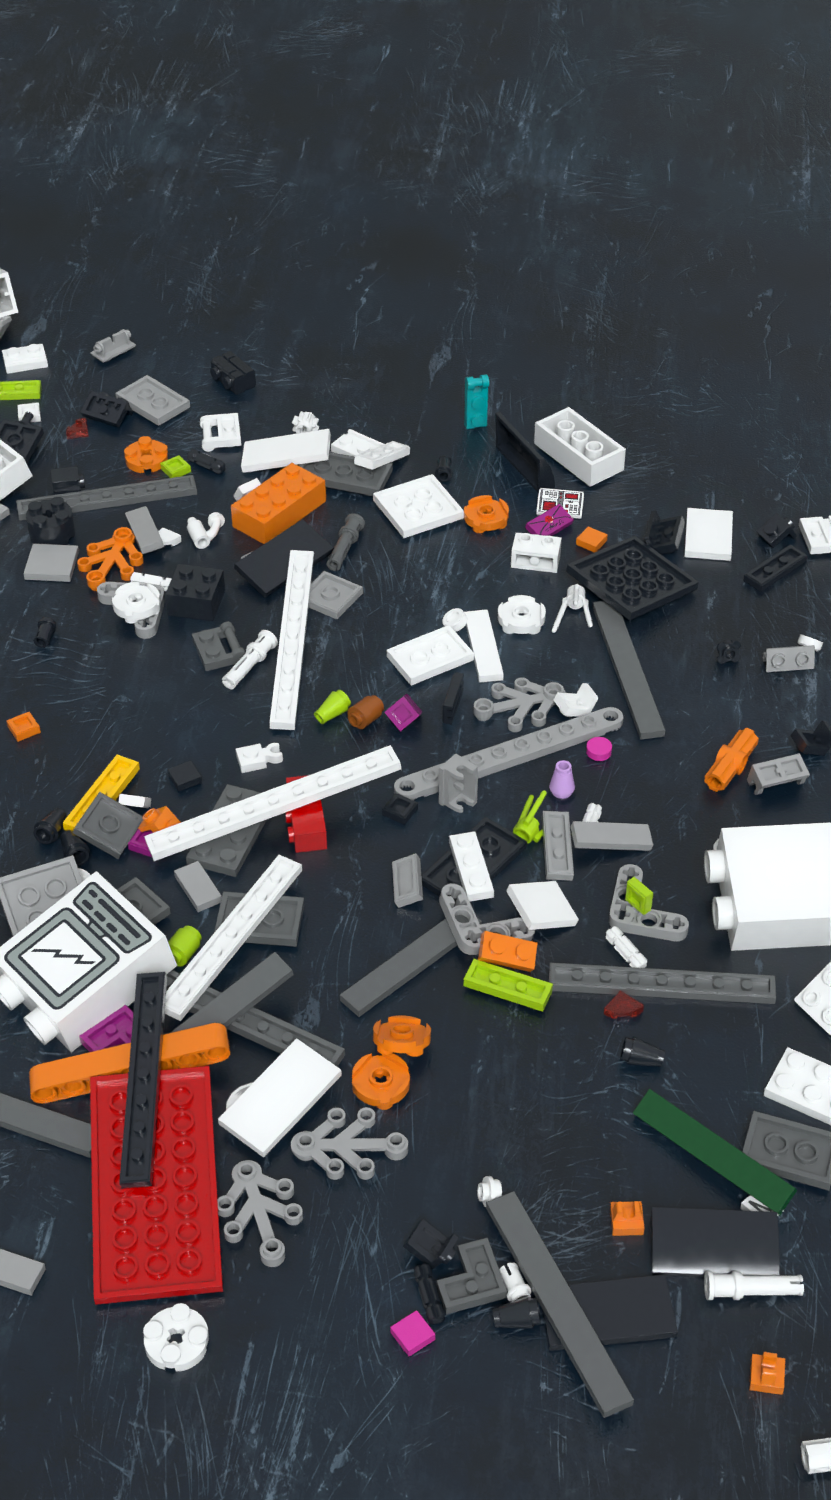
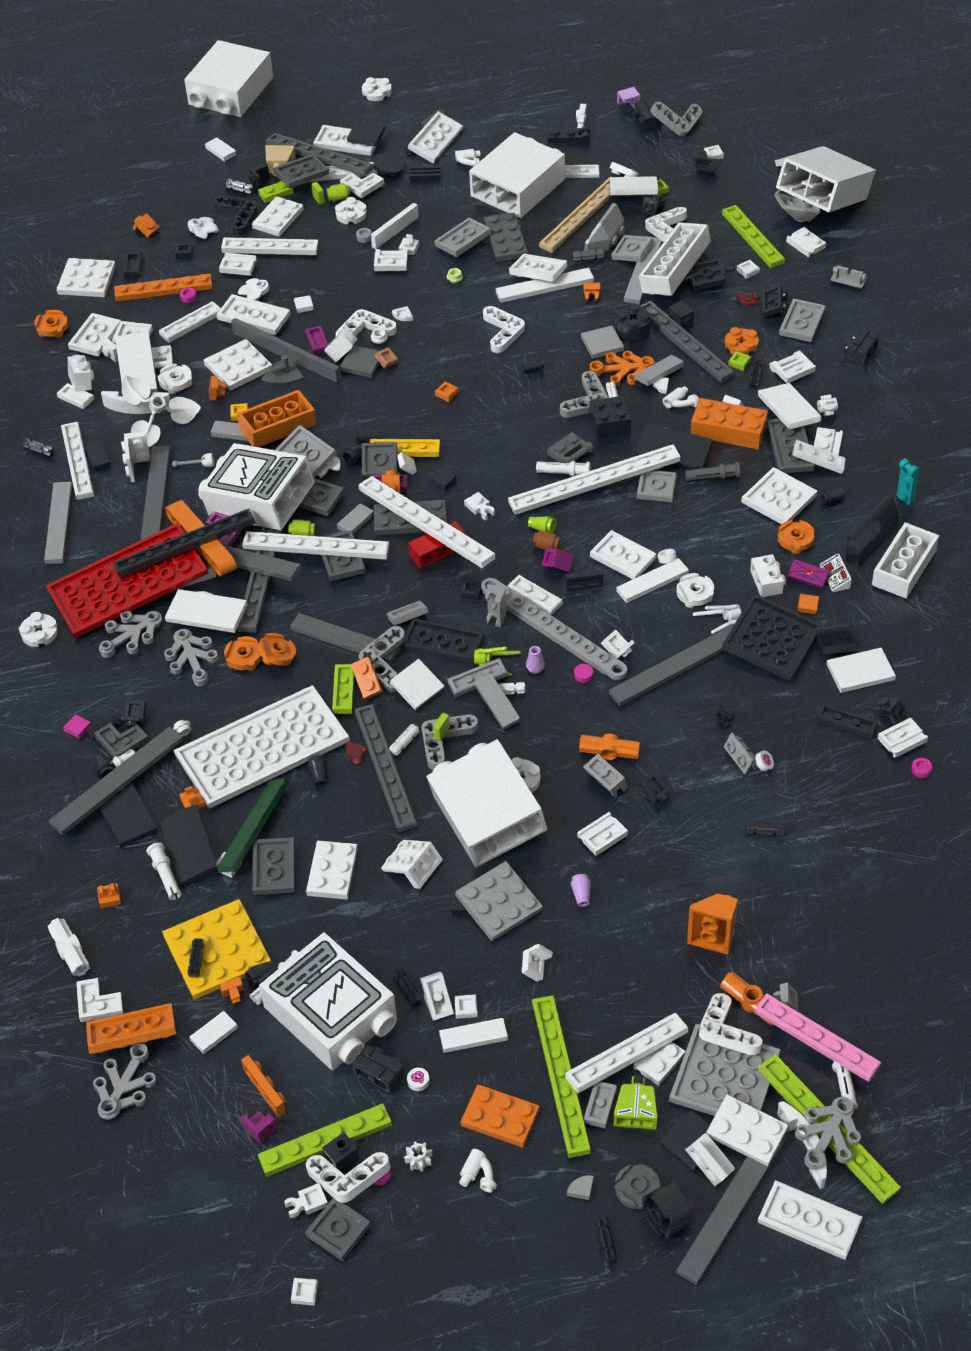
camera: 70 degrees right, 5 degrees up
(147, 605) = (581, 400): white plate -> none
(442, 751) = (536, 594): none -> white tile
(471, 866) = (431, 638): white plate -> none
(485, 708) = (585, 600): light grey plant -> none
(568, 1109) = (261, 746): none -> white plate

